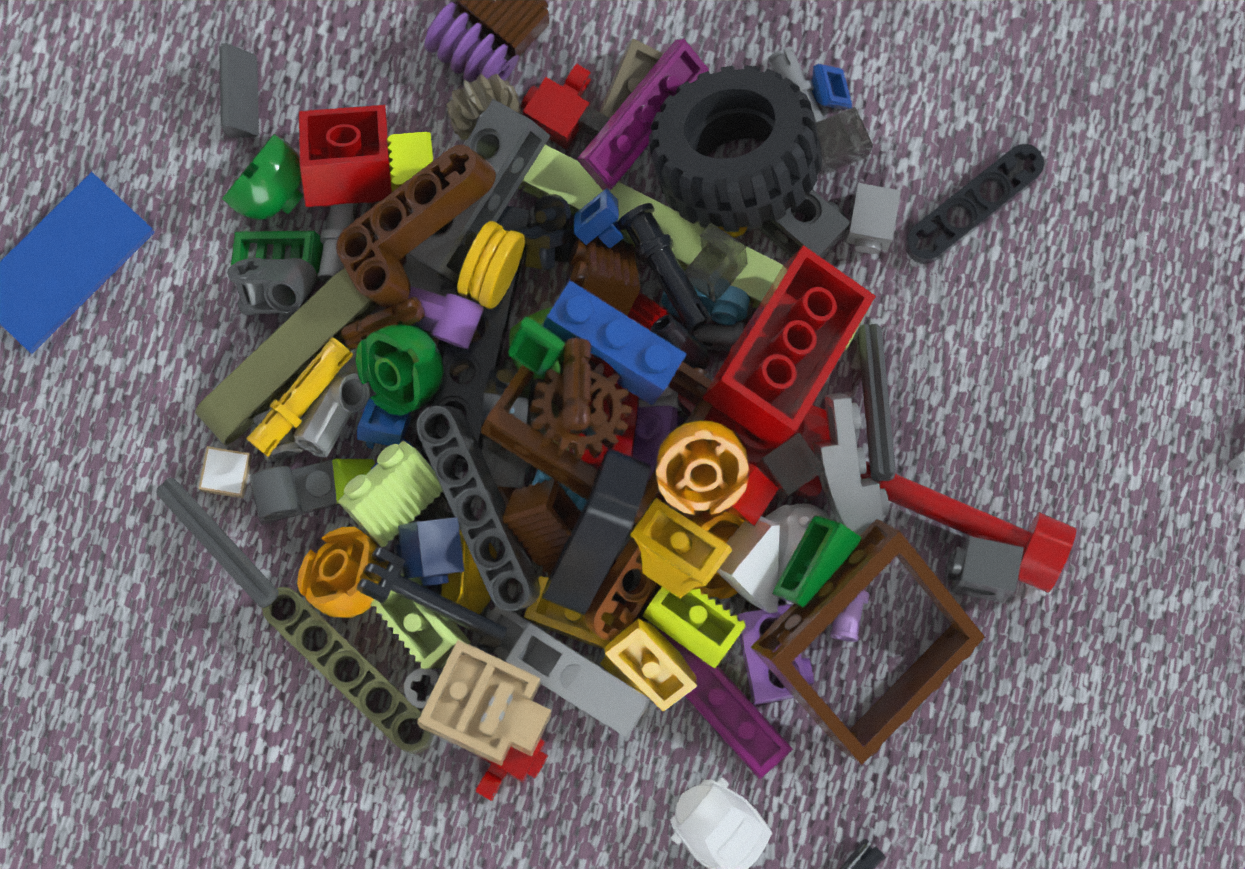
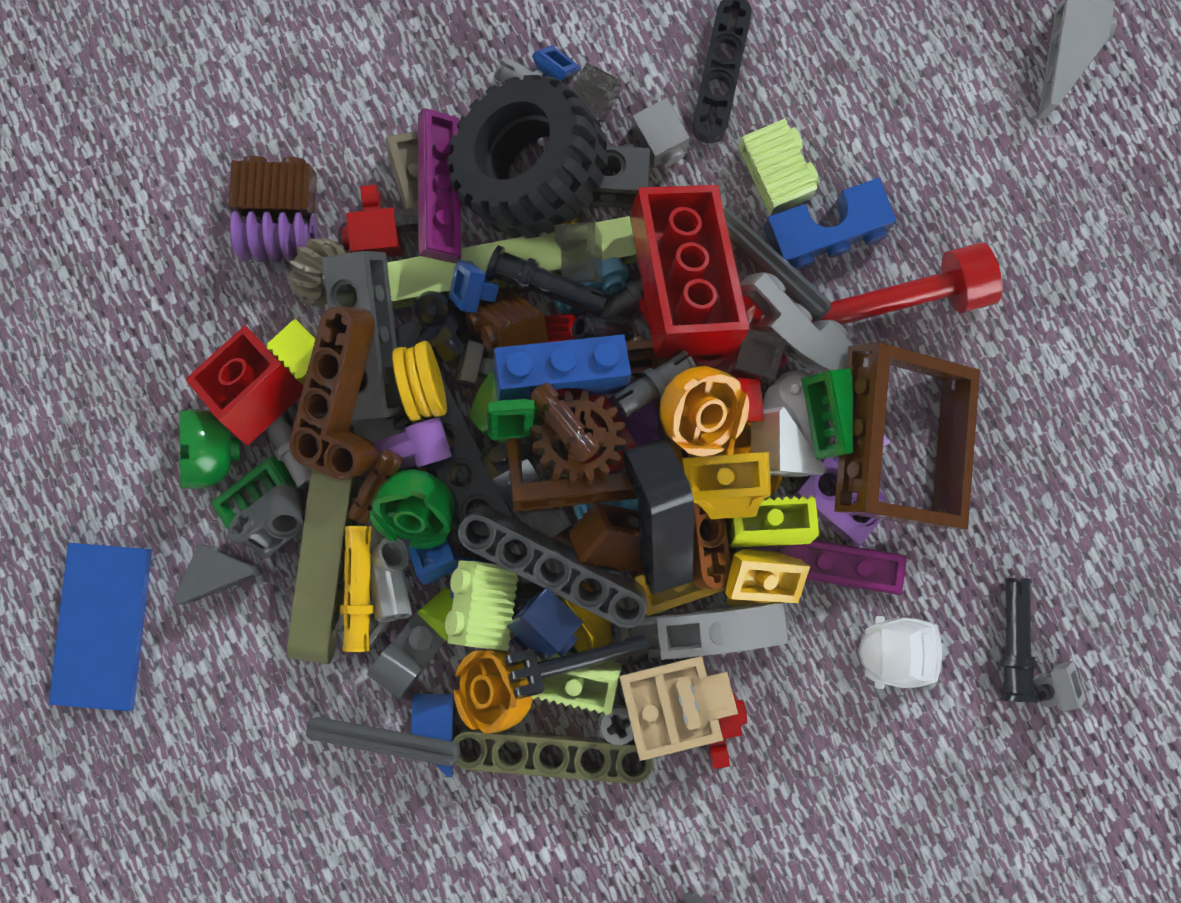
camera: 35 degrees left, 5 degrees up
(189, 291) = (212, 572): none -> dark grey slope
(225, 472) = (345, 682): white tile -> none
(238, 92) = (129, 399): dark grey slope -> none
(277, 560) = (434, 719): none -> blue slope
(548, 286) = (472, 364): none -> light grey tile
(673, 415) = (651, 384): none -> dark grey pin
(920, 405) = (864, 216): none -> blue arch
(953, 326) = (778, 166): none -> yellowish green brick
(984, 569) = (944, 321): dark grey brick -> none

